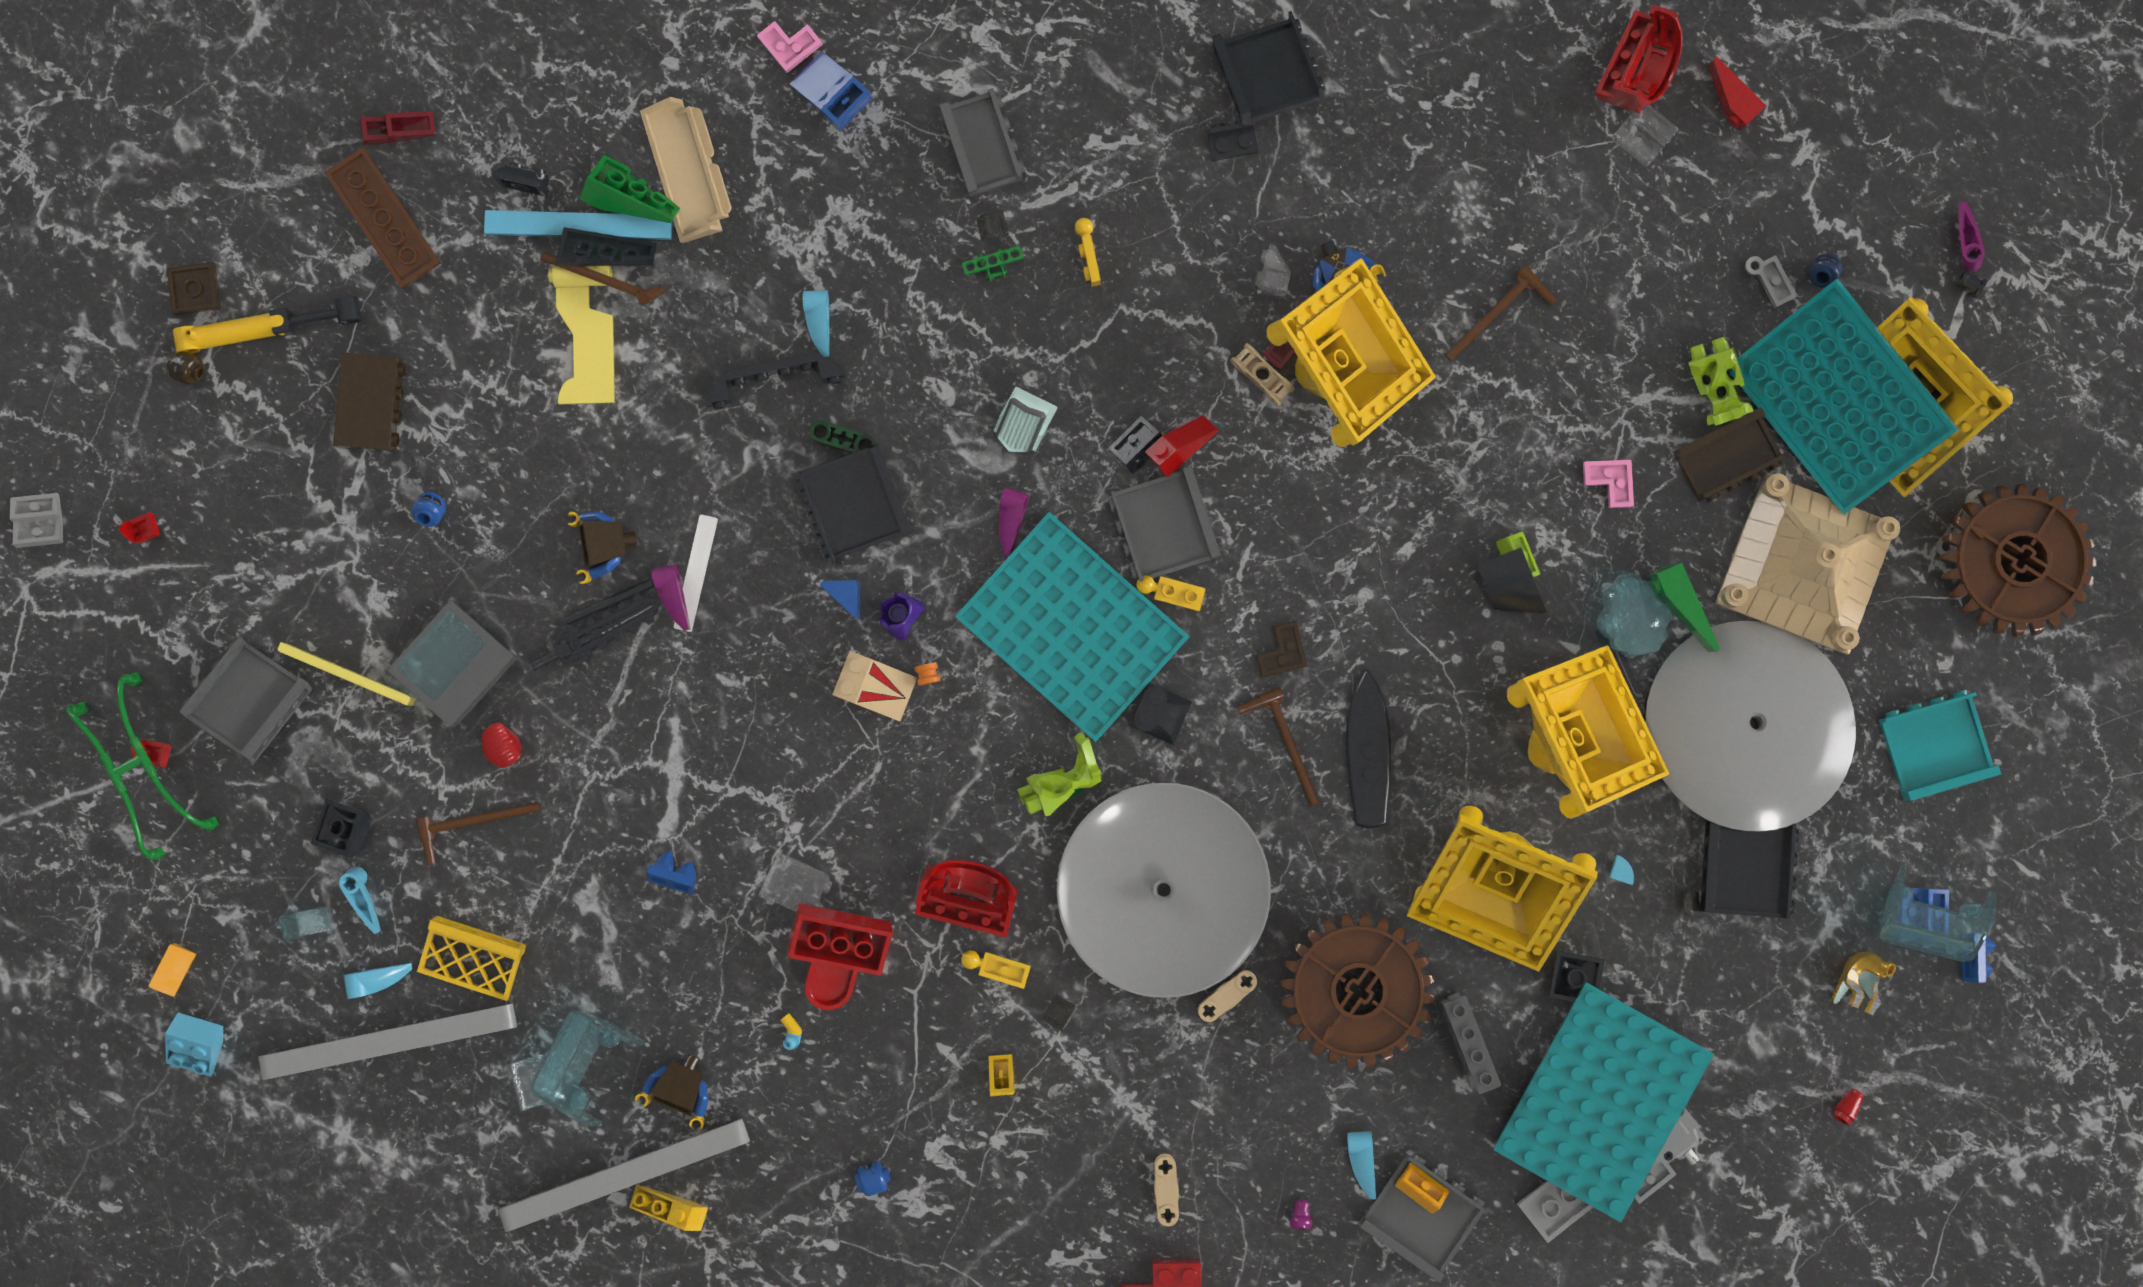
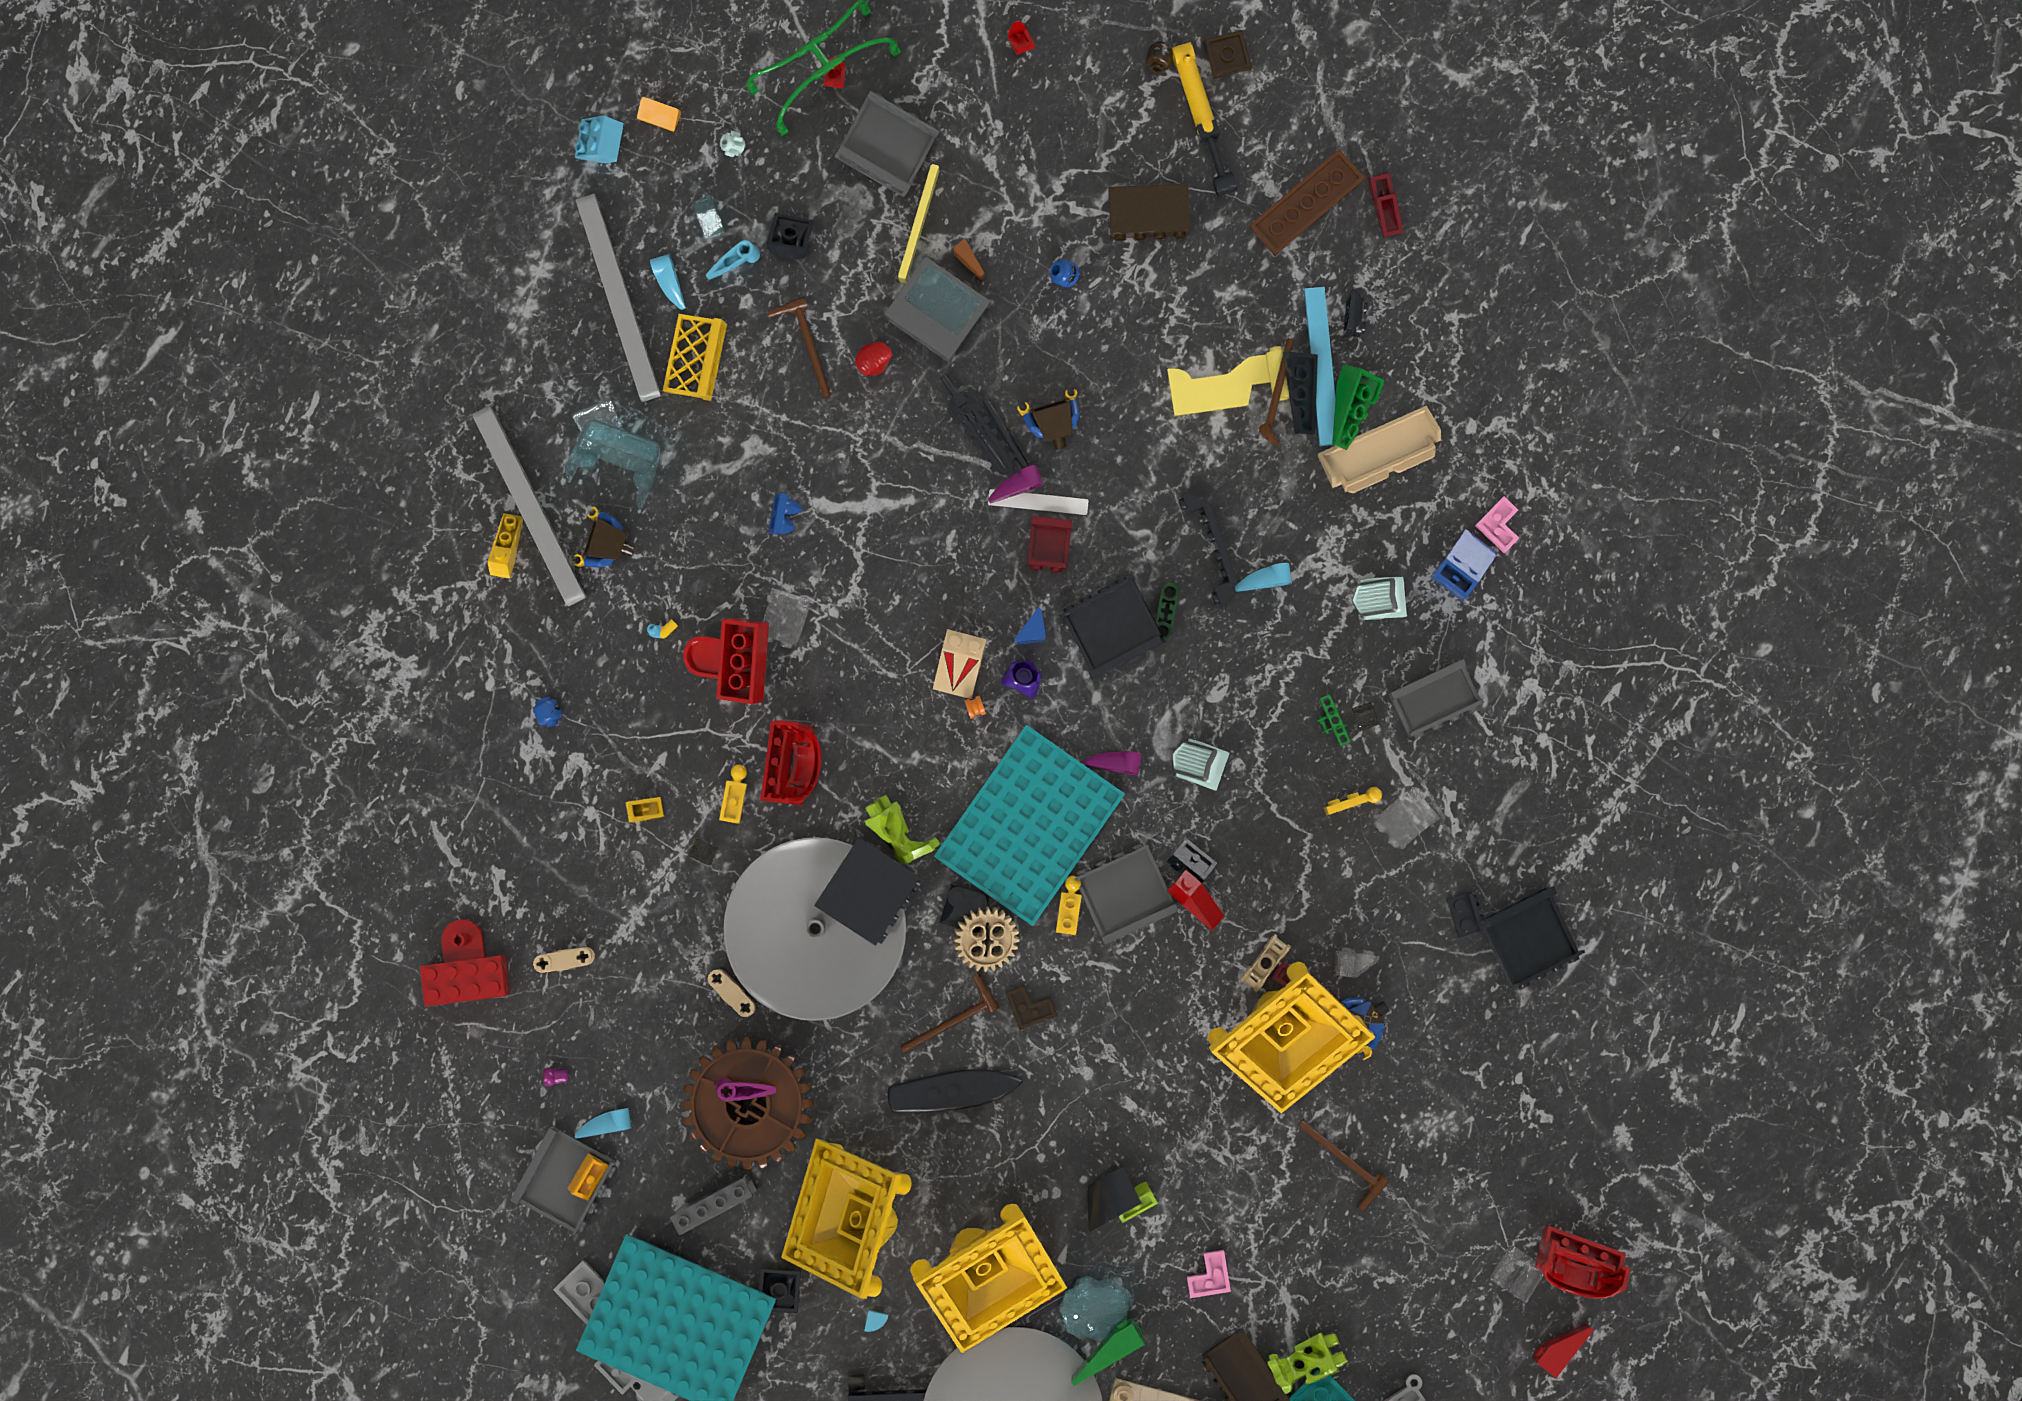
camera: 85 degrees right, 0 degrees up
(220, 884) = (732, 144): none -> light aqua gear
(393, 622) = (967, 257): none -> dark orange slope
(746, 565) = (1049, 544): none -> dark red panel
(857, 191) = (1380, 598): none -> light aqua piece
(1115, 194) = (1405, 818): none -> clear panel
(1128, 821) = (868, 892): none -> black panel
(1199, 670) = (1004, 938): none -> tan gear
(1342, 993) = (742, 1090): none -> magenta piece

